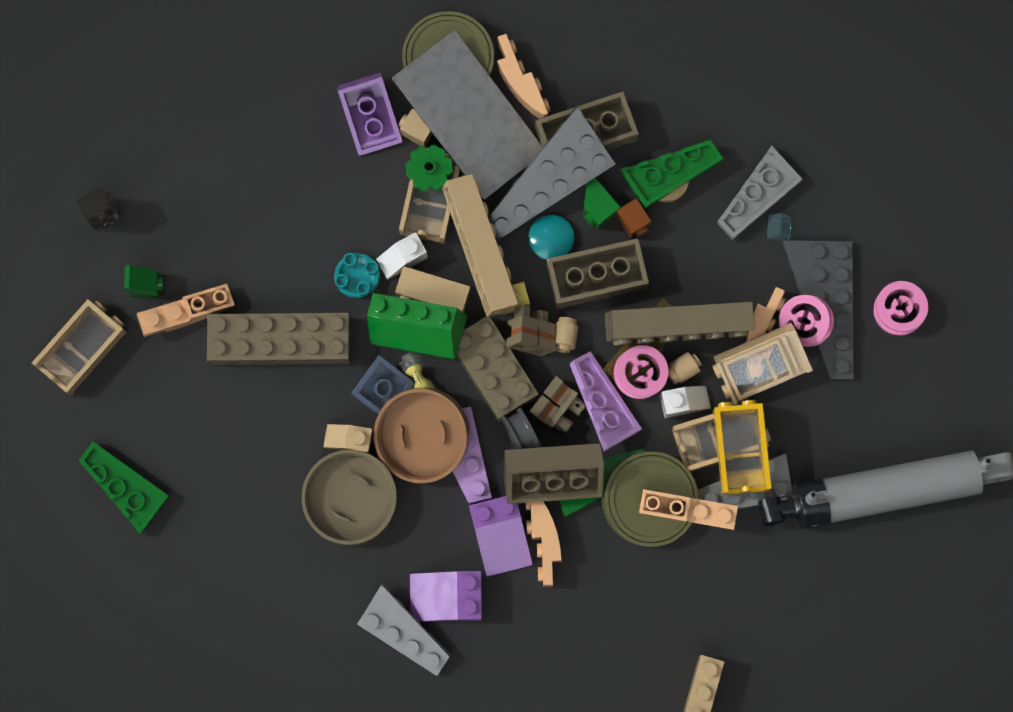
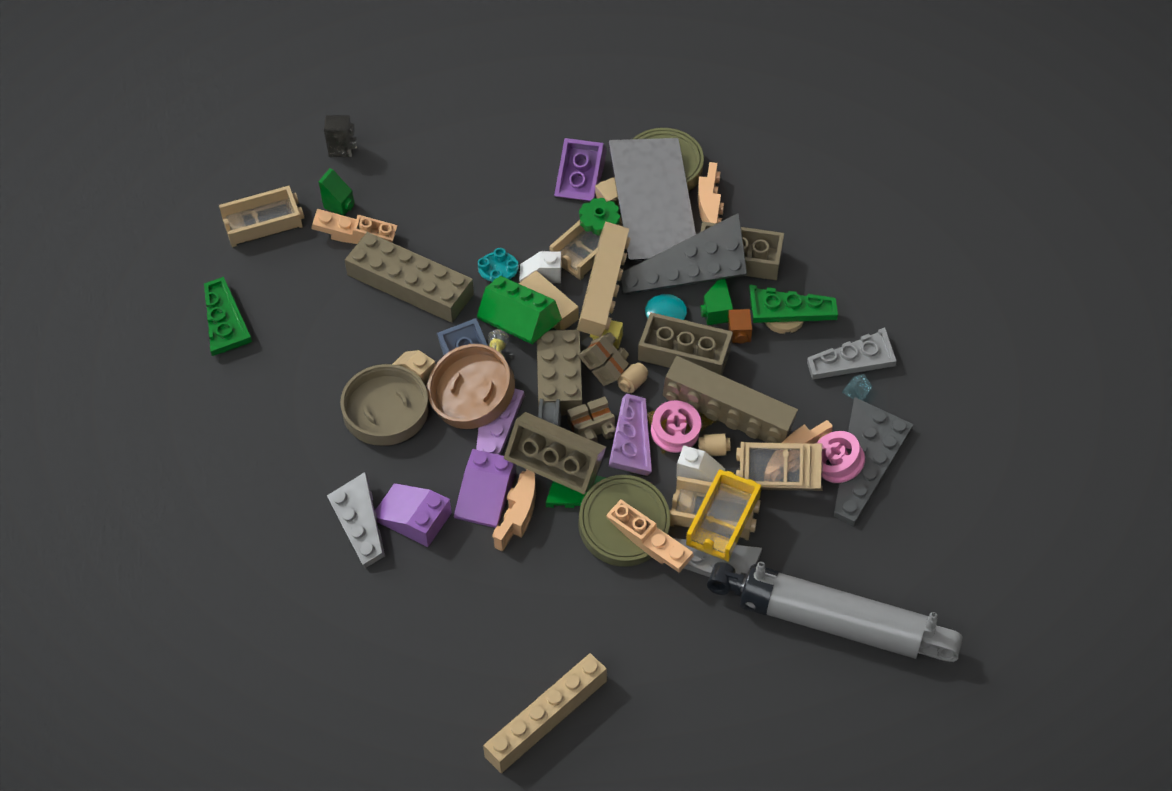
camera: 30 degrees right, 25 degrees down
(915, 299) = (914, 489): bright pink wheel -> none

